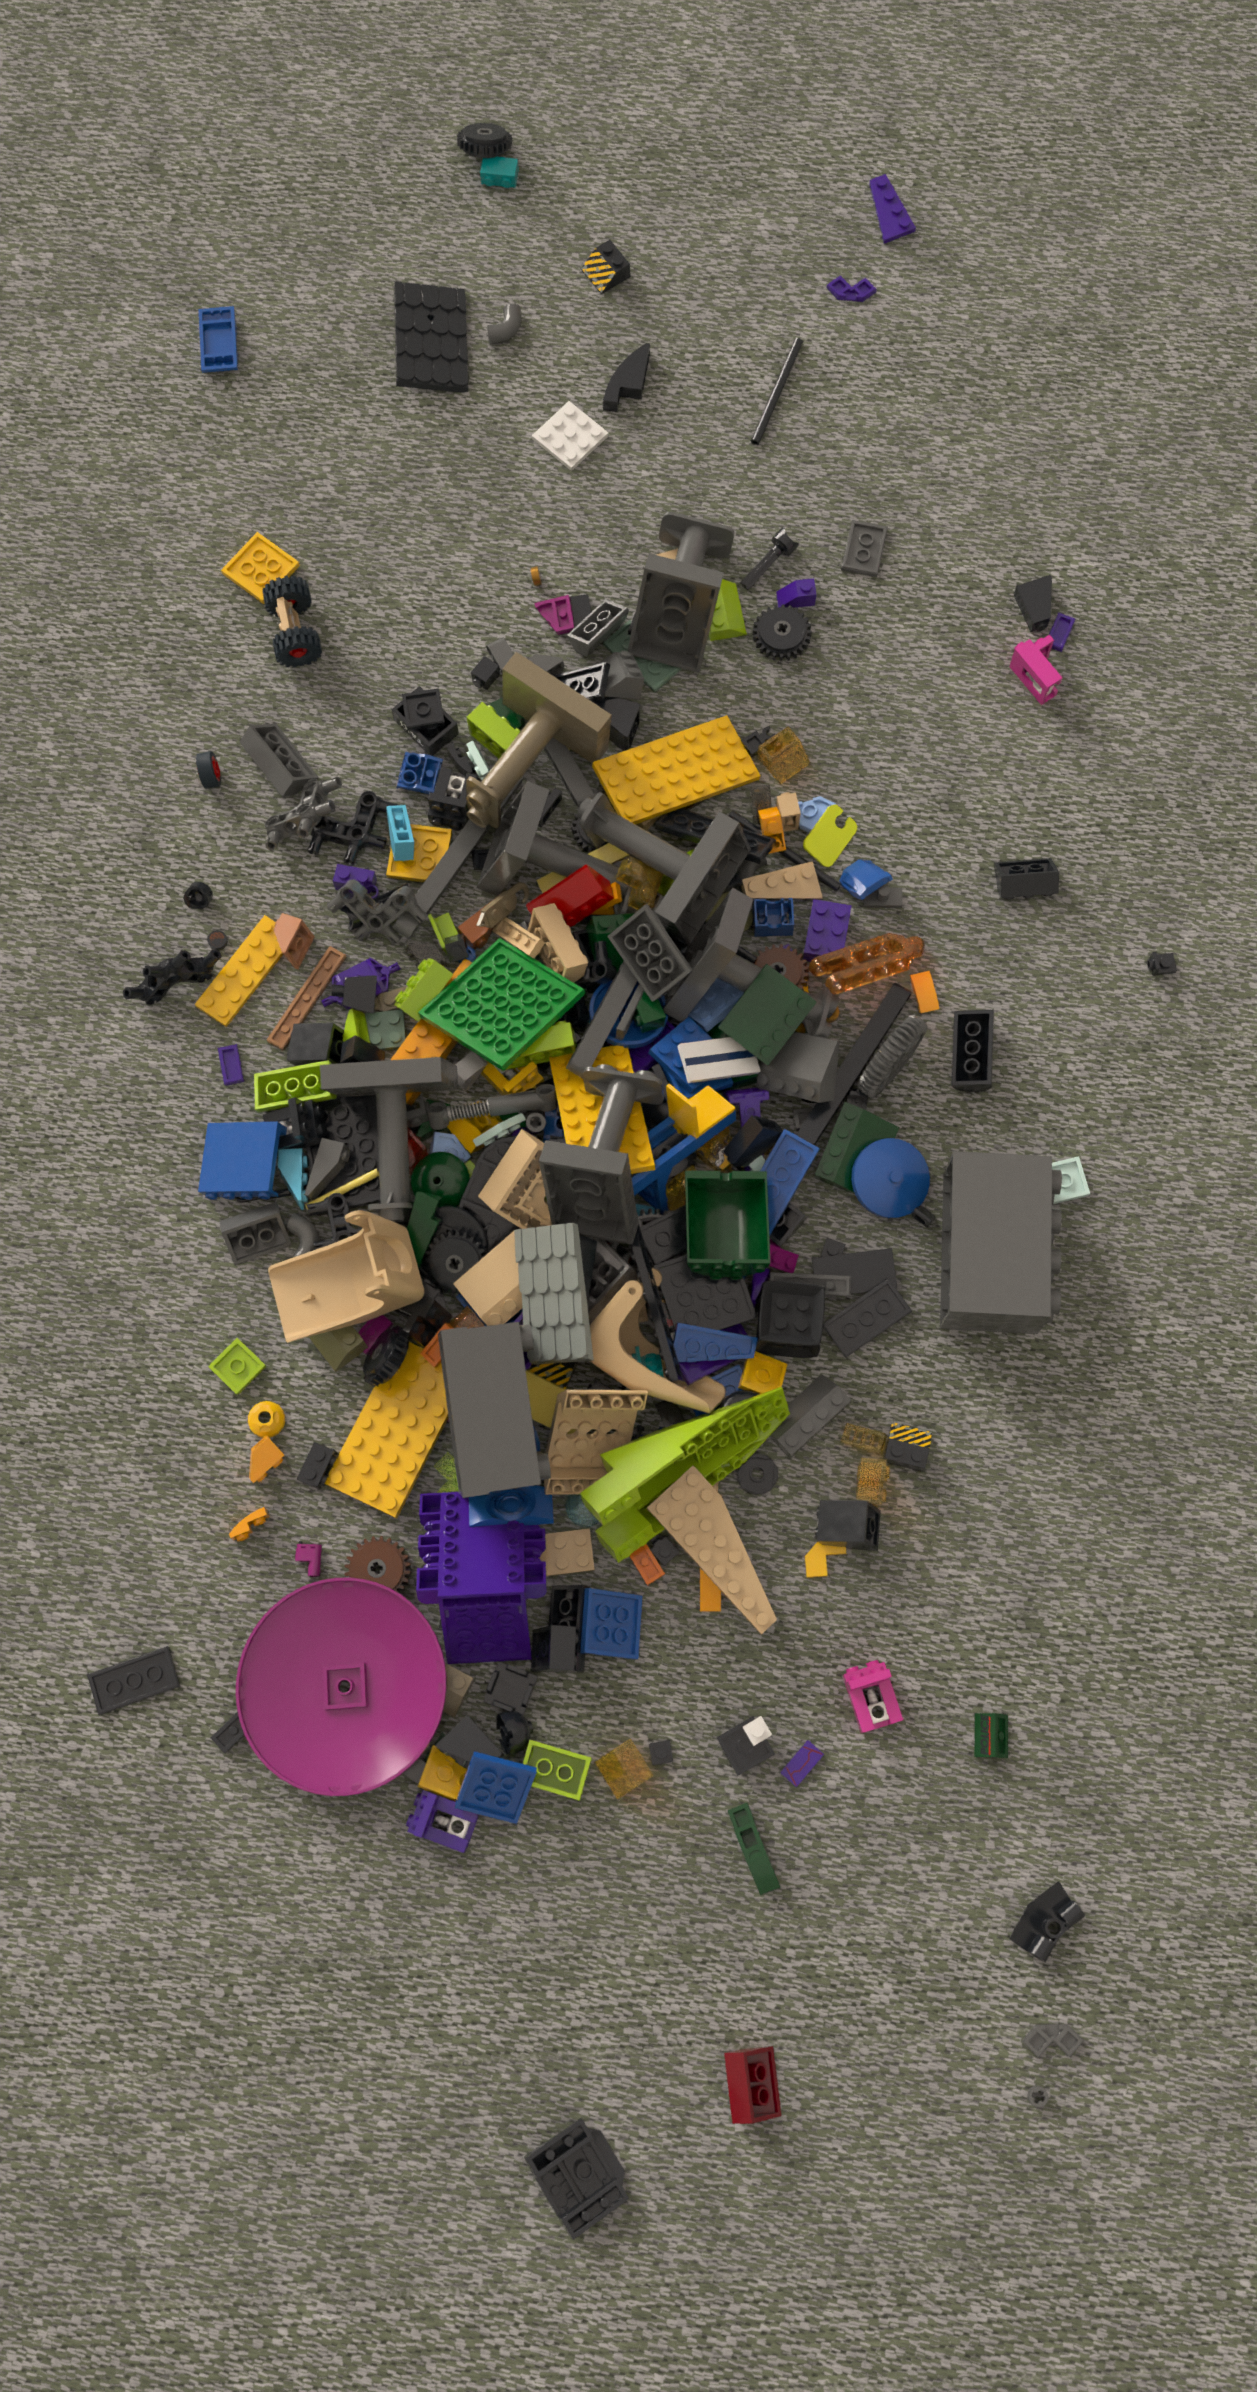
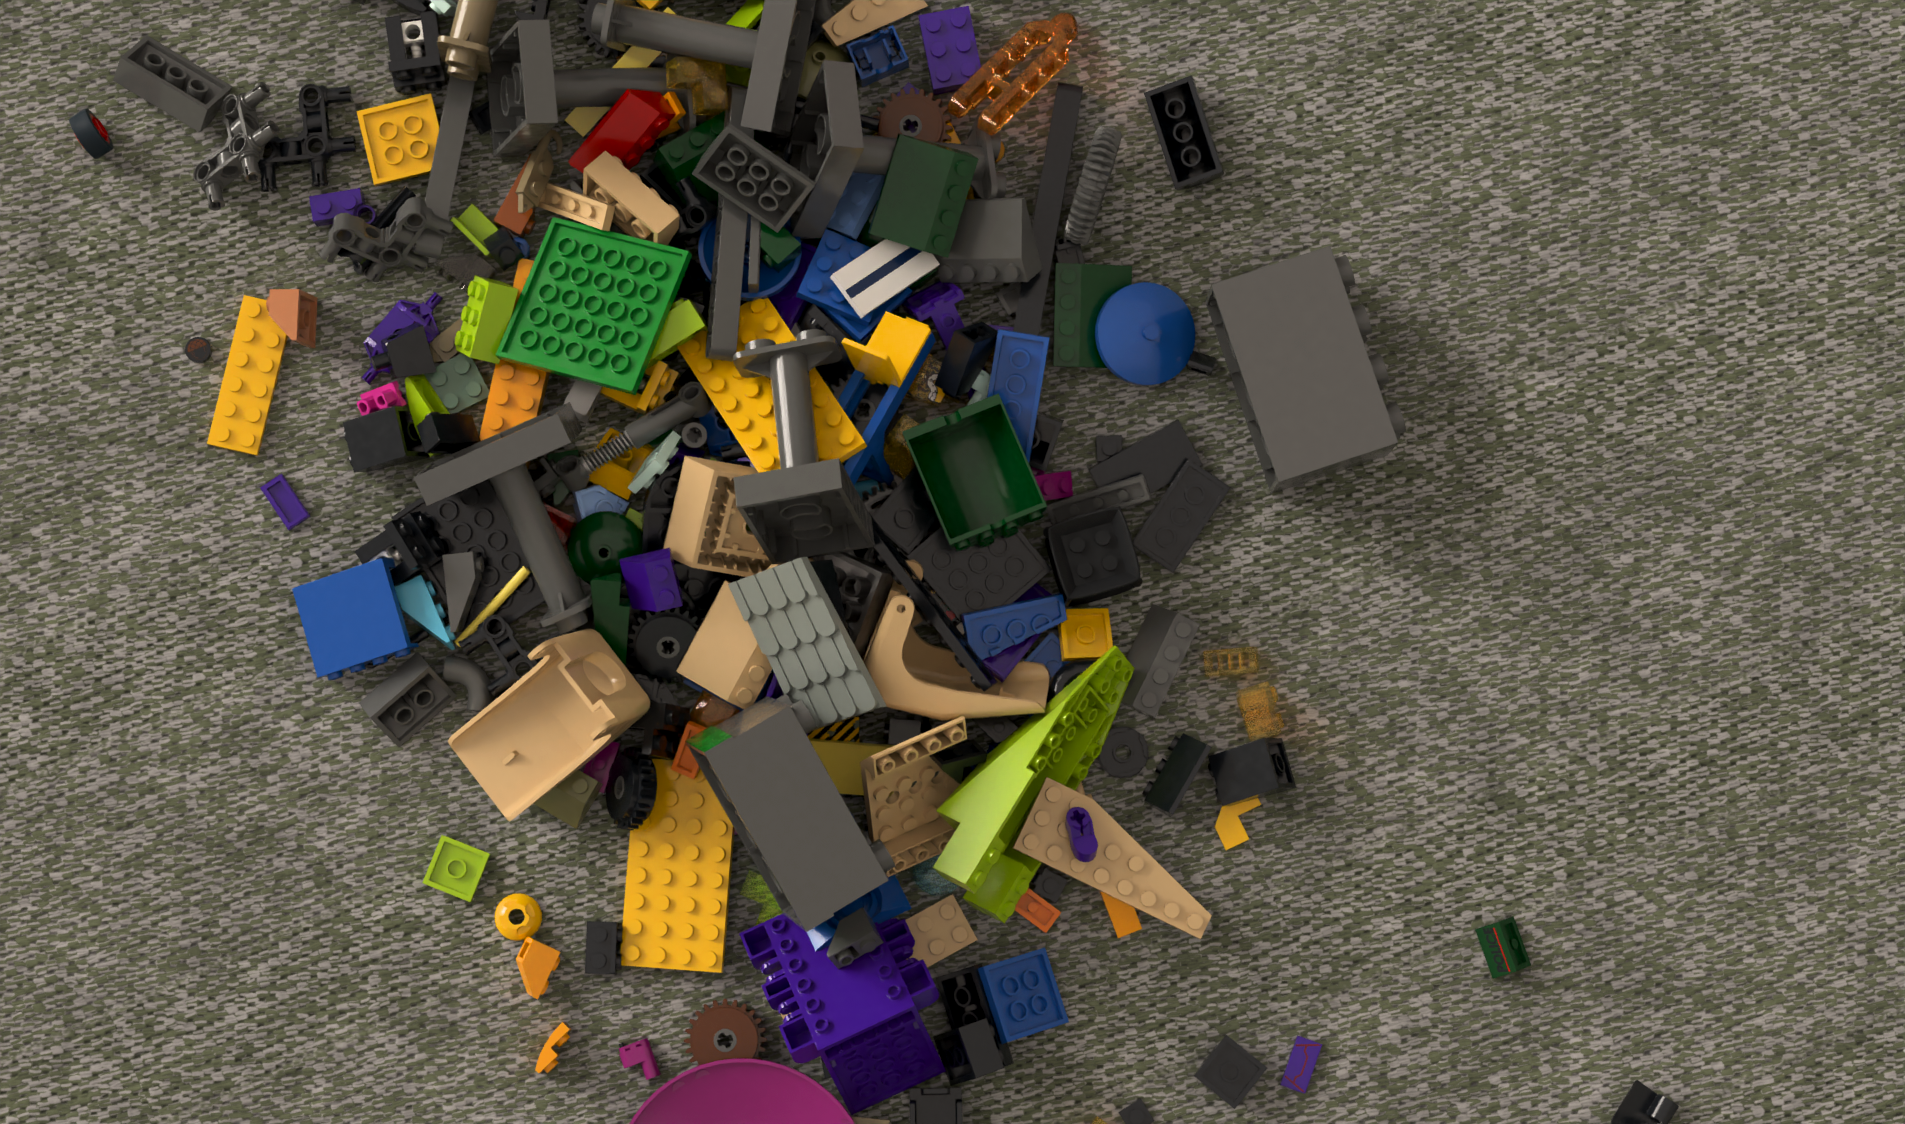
camera: 25 degrees left, 10 degrees up
(170, 972) = (165, 418): black pin -> none
(198, 895) = (150, 303): black piece -> none
(277, 1086) = (375, 502): lime brick -> none
(306, 997) = (342, 380): medium nougat tile -> none
(327, 1016) = (381, 398): none -> dark pink hips
(400, 833) = (370, 125): medium azure slope -> none
(419, 772) = (358, 28): blue slope -> none
(462, 1210) = (652, 581): none -> dark purple slope
(500, 1526) = (853, 938): none -> dark grey slope
(632, 1421) = (960, 755): none -> black slope
(650, 1361) = (946, 674): teal bracket -> none
(702, 1507) = (1083, 846): none -> dark purple piece
(757, 1280) = (1036, 530): dark purple slope -> none
(757, 1731) = (1237, 1050): white plate -> none
(791, 1504) = (1176, 774): none -> black slope
(873, 1675) = (1343, 934): dark pink brick -> none
(907, 1447) = (1285, 651): black slope -> none
(924, 991) = (1098, 79): light orange slope -> none
(1073, 1180) = (1360, 249): light aqua plate -> none

